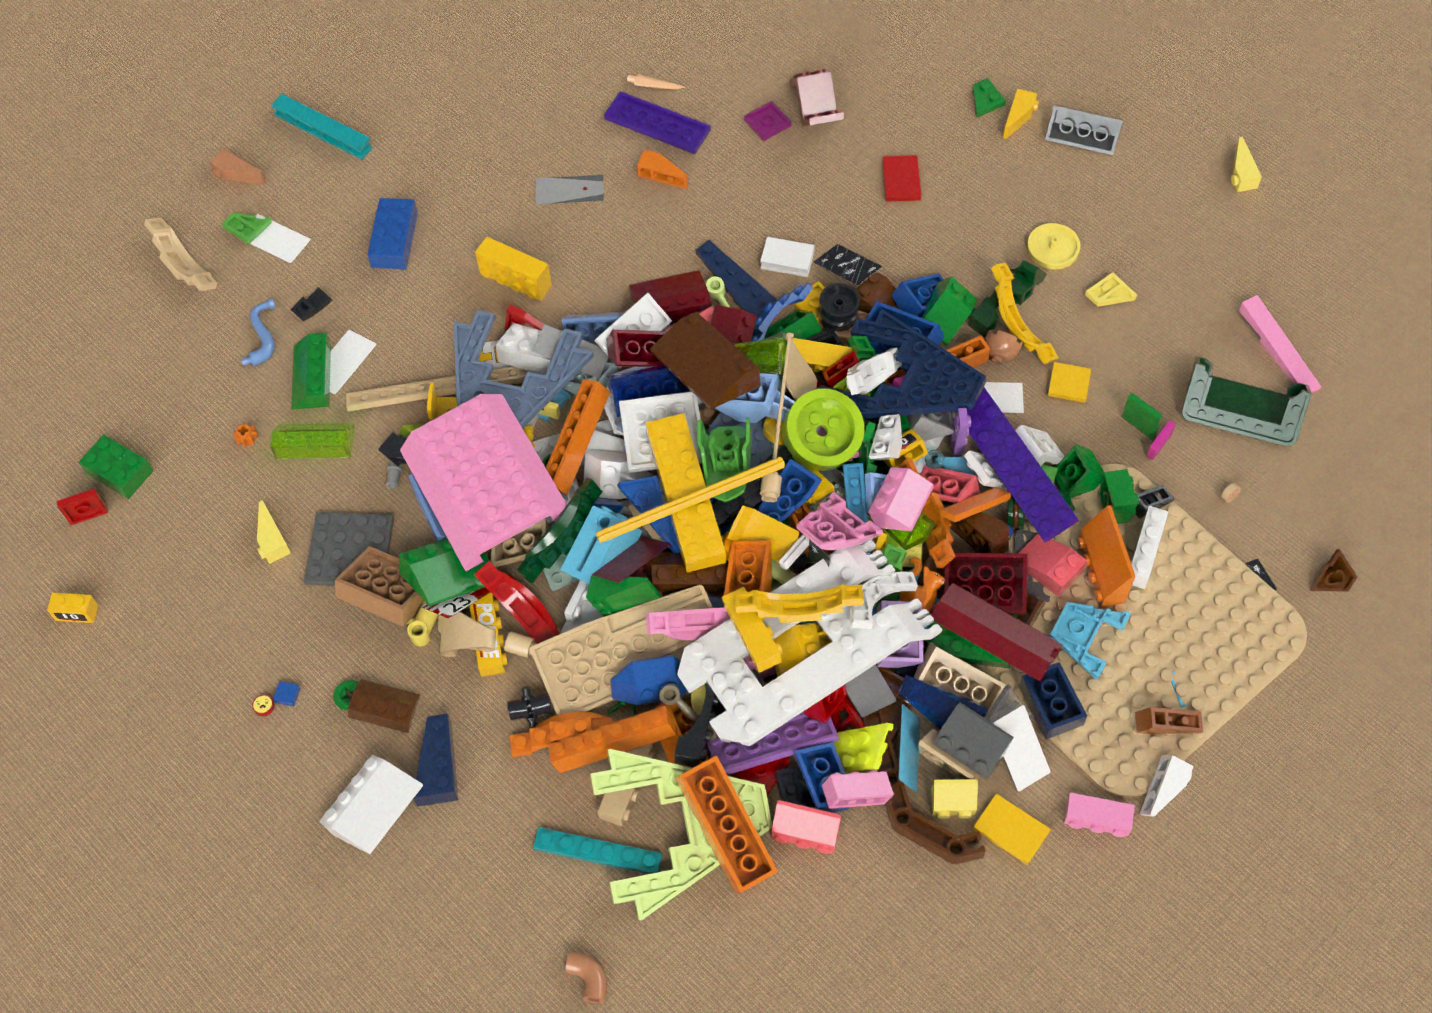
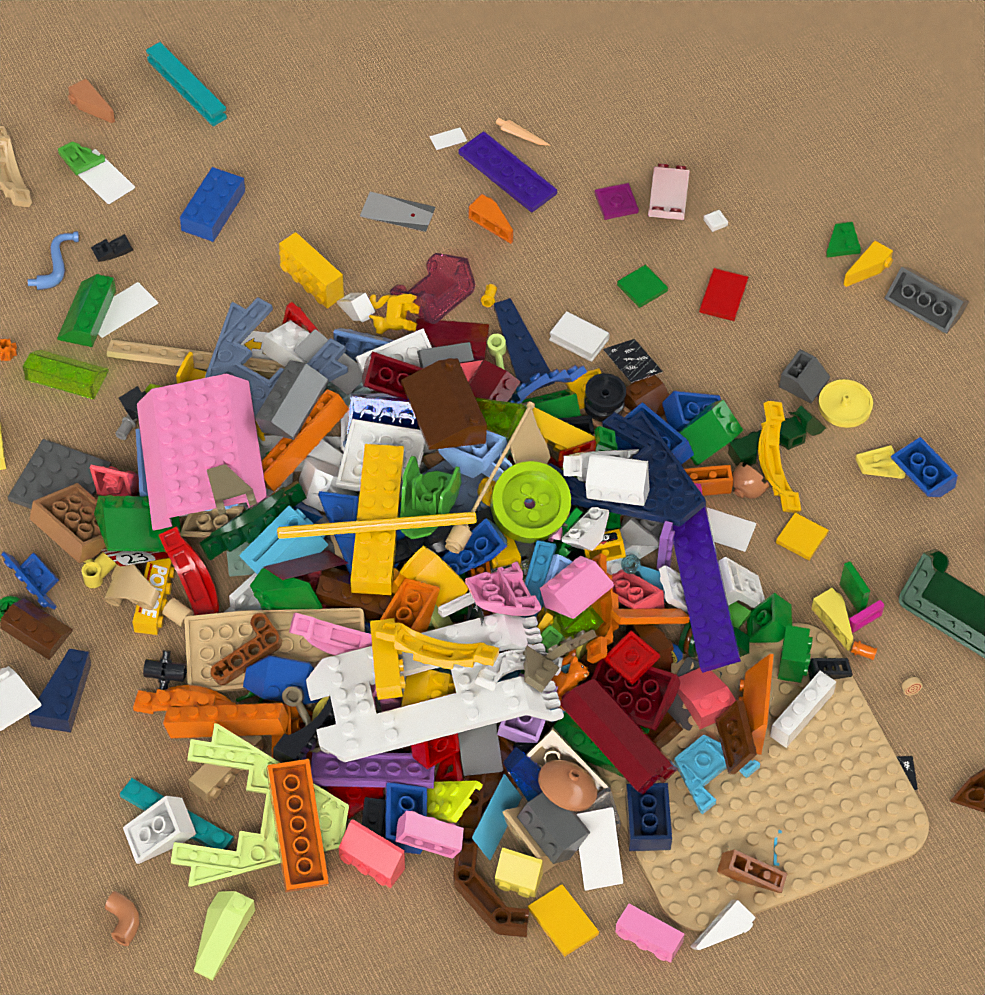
camera: 15 degrees right, 5 degrees down
(362, 651) = (35, 575): none -> blue bracket
(406, 534) = (114, 481): none -> coral slope
(527, 505) = (226, 485): none -> dark tan flag
(553, 401) = (291, 400): none -> slope
(569, 290) = (356, 306): none -> white slope
(588, 107) = (448, 138): none -> white sticker
(588, 872) = (159, 828): none -> white slope
(603, 666) = (243, 652): none -> dark orange beam
(611, 285) = (396, 312): none -> yellow animal
(641, 251) = (443, 288): none -> clear pink windscreen
(672, 314) = (461, 351): none -> dark grey tile
(688, 243) = (488, 297): none -> yellow pin
(688, 950) = (222, 928): none -> yellowish green wedge
(824, 192) = (642, 286): none -> green tile
(864, 112) = (715, 220): none -> white tile
(898, 382) = (617, 479): none -> white slope
(901, 592) = (538, 669): none -> dark tan wing
(917, 558) = (570, 644): none -> dark tan wing
(972, 697) = (567, 785): none -> nougat dish
(977, 550) = (631, 657): none -> red tile
(1008, 232) = (804, 376): none -> dark grey slope
(1103, 596) = (736, 737): none -> reddish brown plate
(1132, 447) = (832, 612): none -> light yellow slope
(1155, 283) = (926, 468): none -> blue slope
(1172, 472) = (863, 650): none -> orange pin

